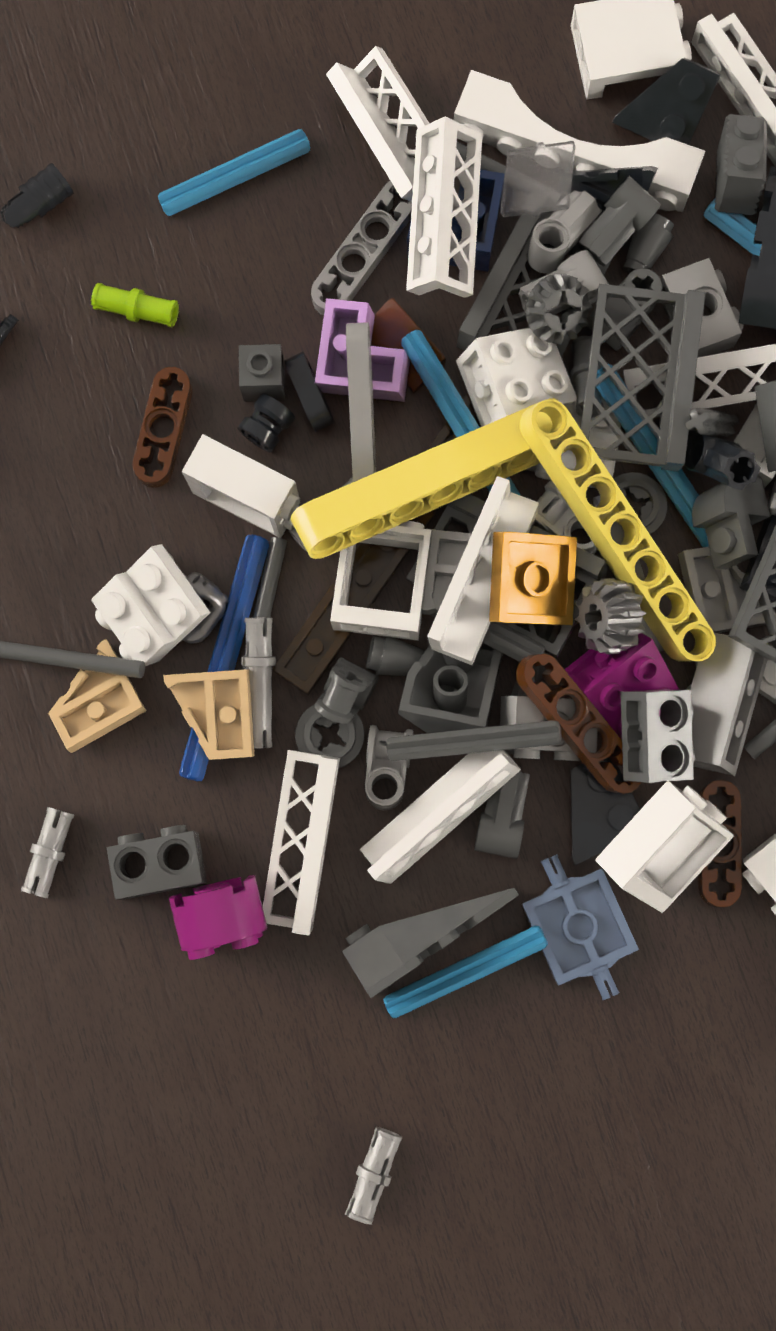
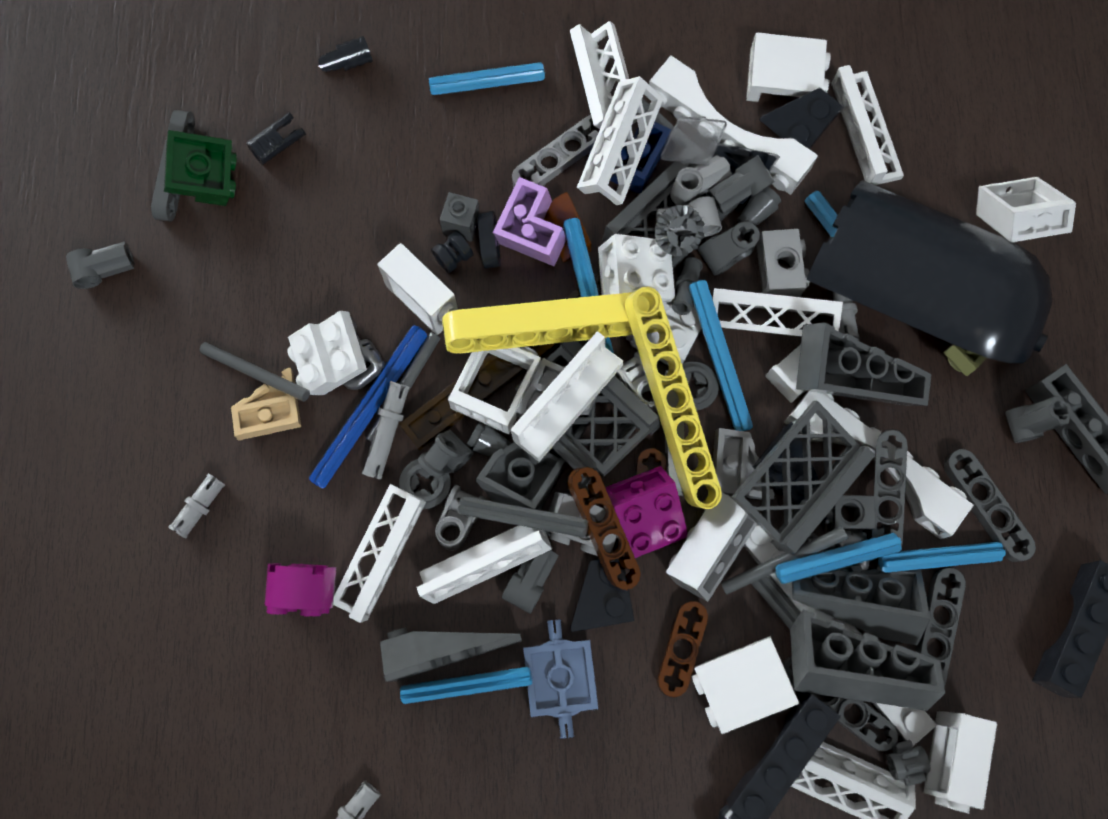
camera: 10 degrees right, 5 degrees down
(135, 305) = (388, 146): lime pin -> none
(158, 874) = (269, 543): dark grey brick -> none
(180, 401) = (377, 221): reddish brown beam -> none
(217, 710) = (350, 440): tan wing -> none
(360, 399) = (520, 251): light grey beam -> none
(532, 578) = (601, 412): plate -> none
(610, 616) = (649, 456): flat silver gear -> none
(648, 735) = (650, 551): dark grey brick -> none
(665, 846) = (647, 651): white window -> none
(679, 377) = (750, 303): dark grey fence -> none
(712, 422) = (765, 342): dark grey axle -> none
(721, 460) = (760, 367): black piece -> none
(729, 519) = (758, 412): dark grey brick -> none
(741, 164) = (840, 172): dark grey brick -> none

